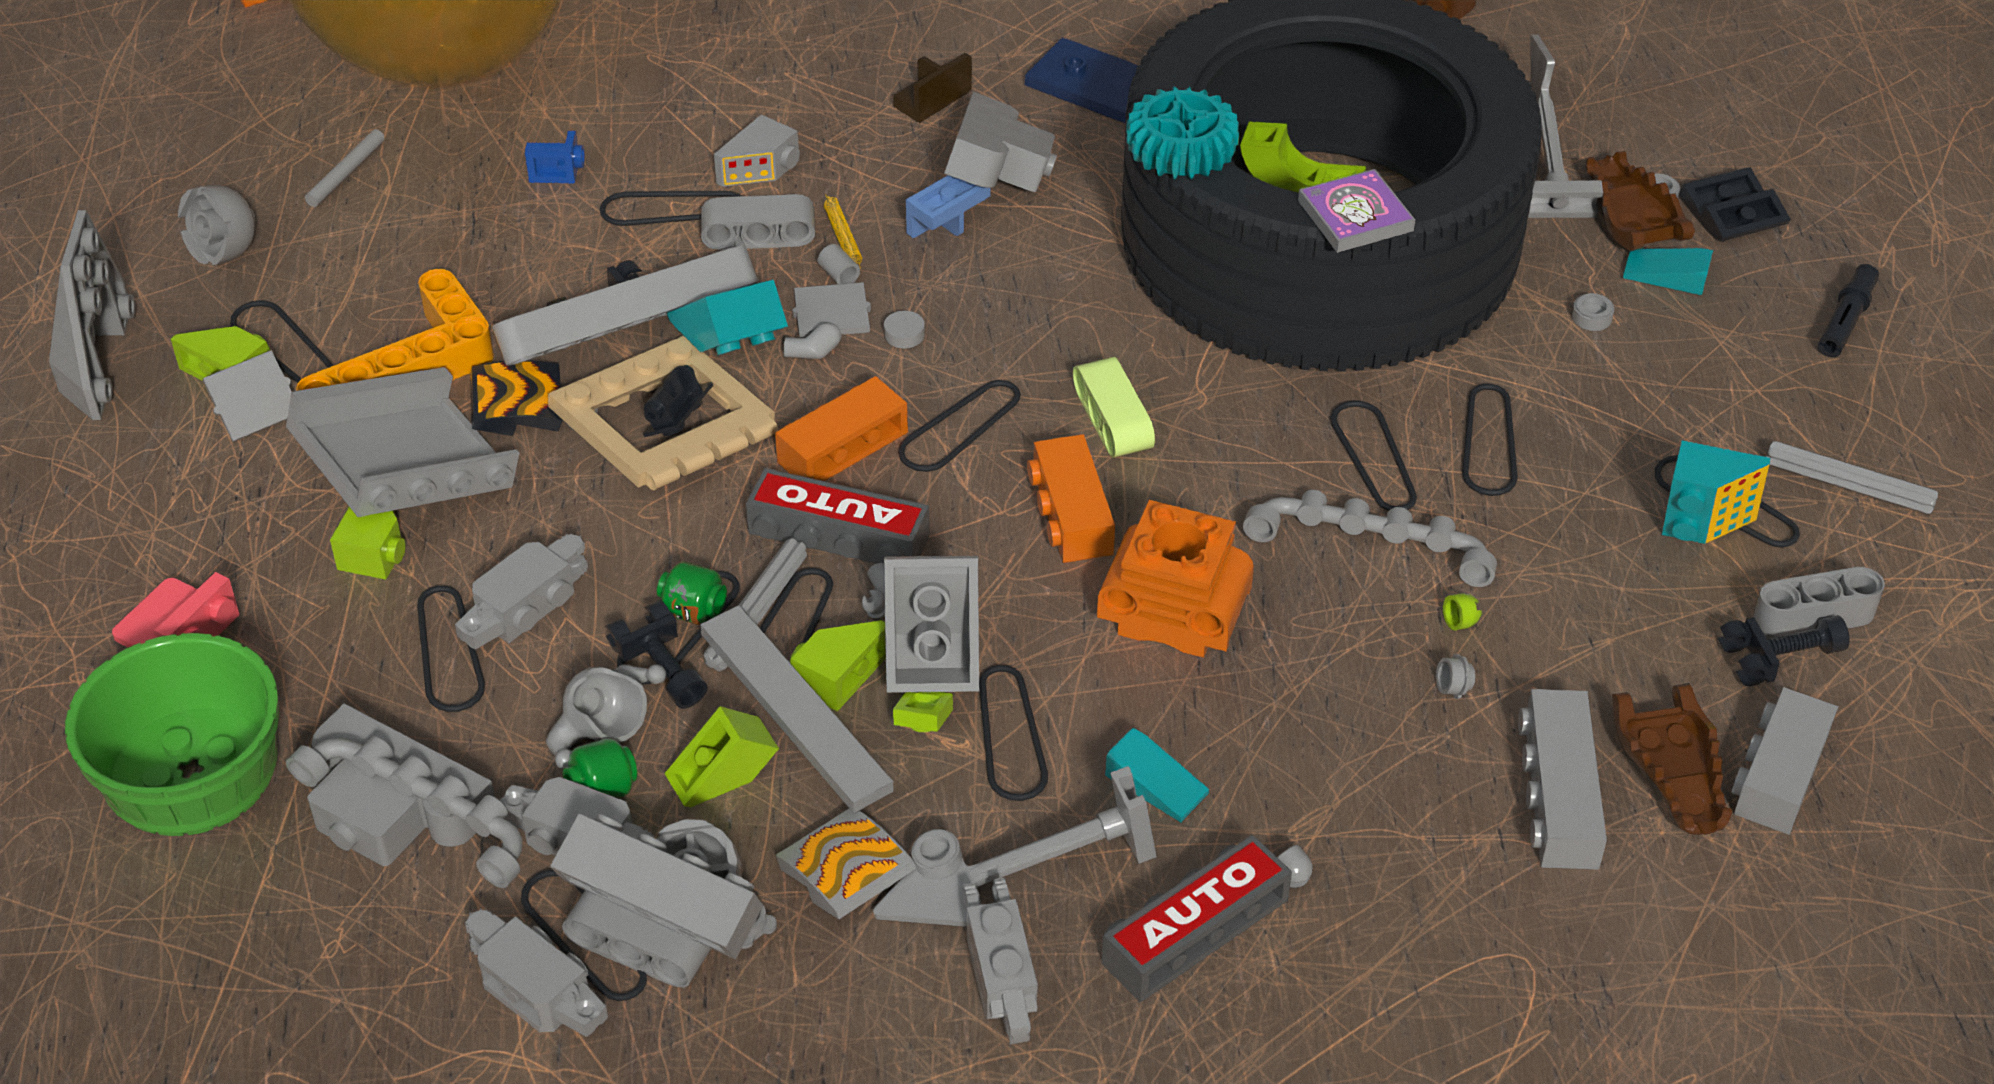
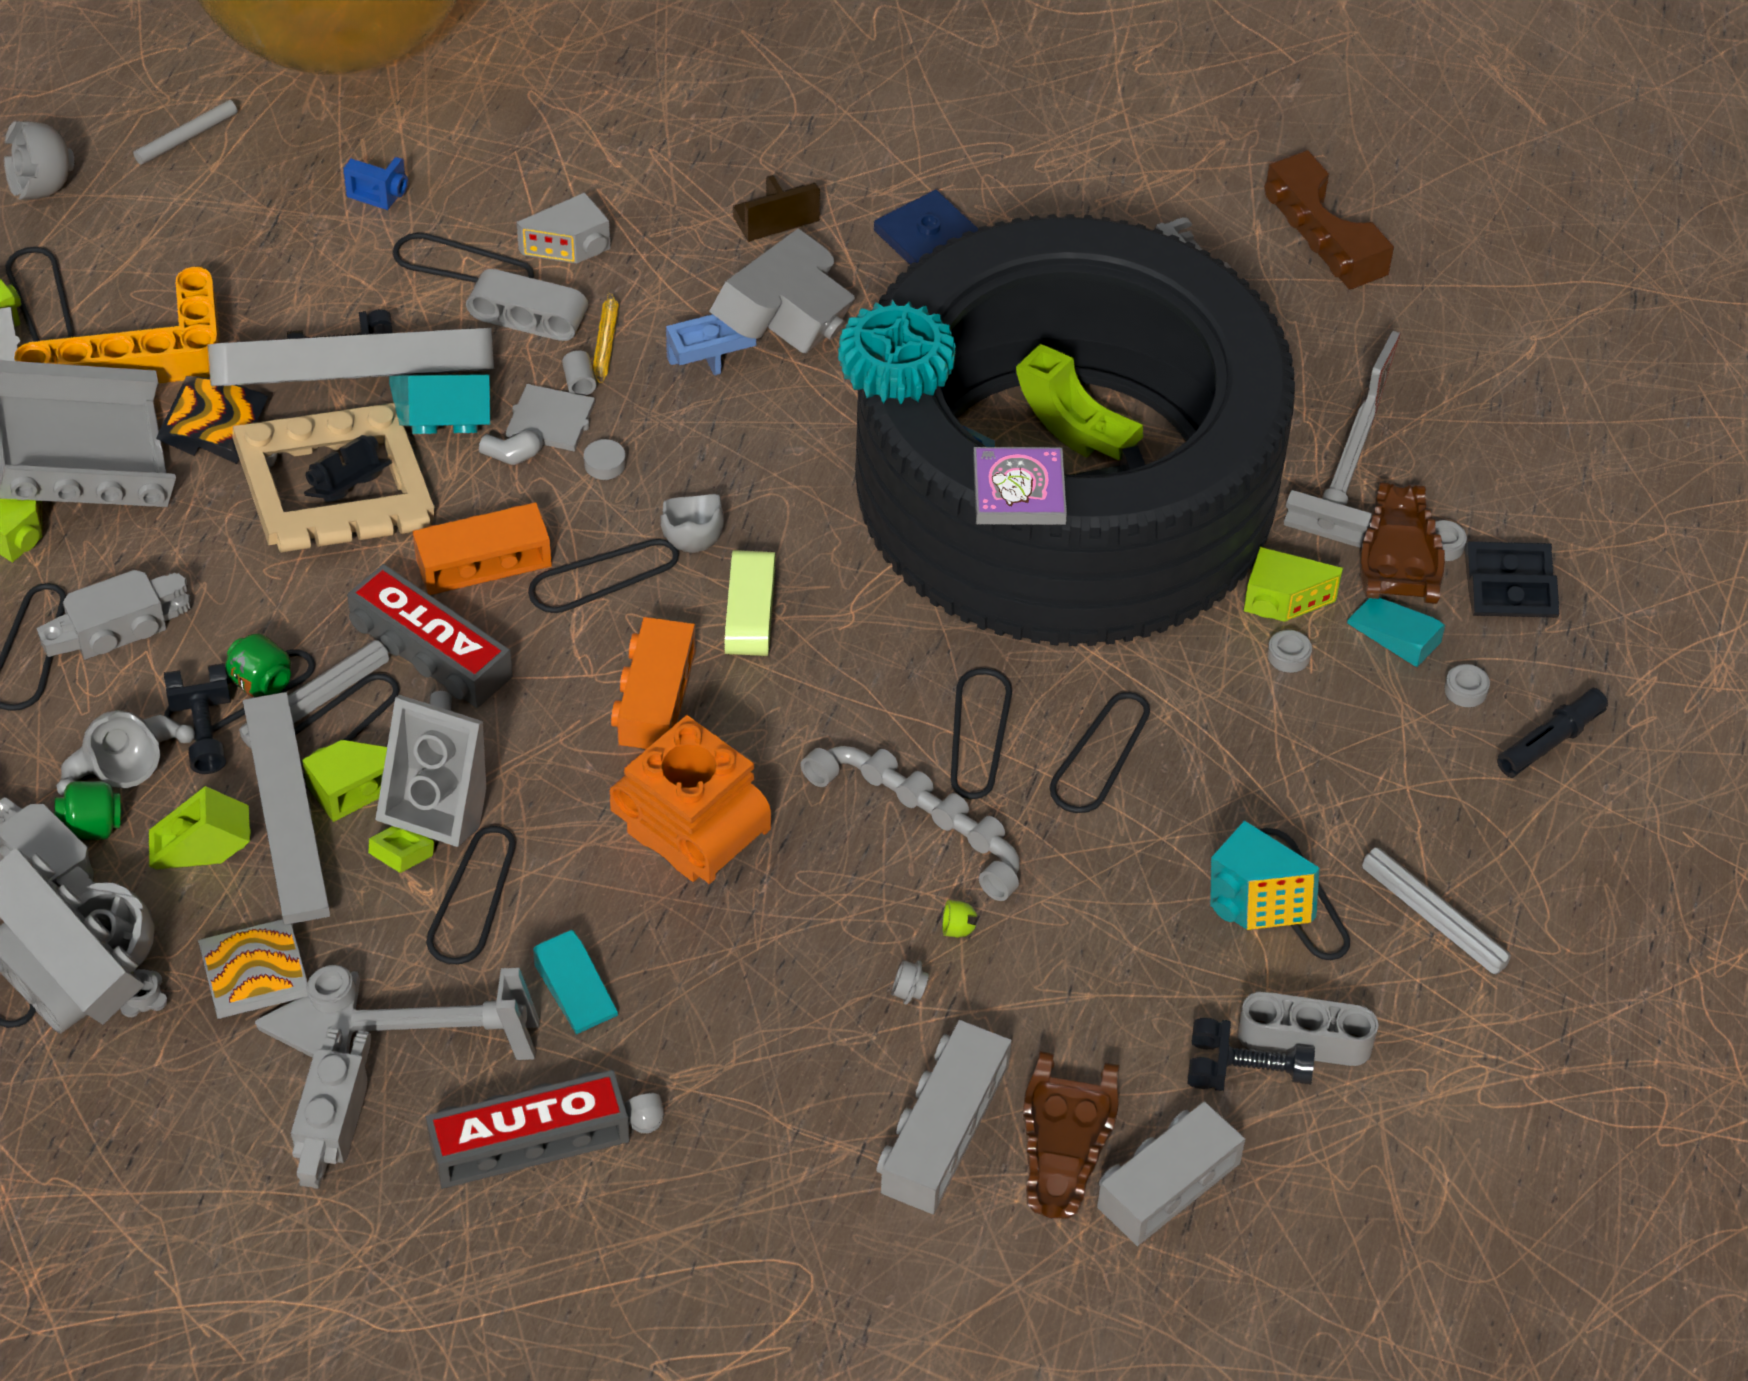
camera: 20 degrees right, 5 degrees up
(1021, 355) = (692, 522): none -> light grey hair
(1562, 258) = (1289, 585): none -> lime slope
(1753, 296) = (1467, 685): none -> light grey tile

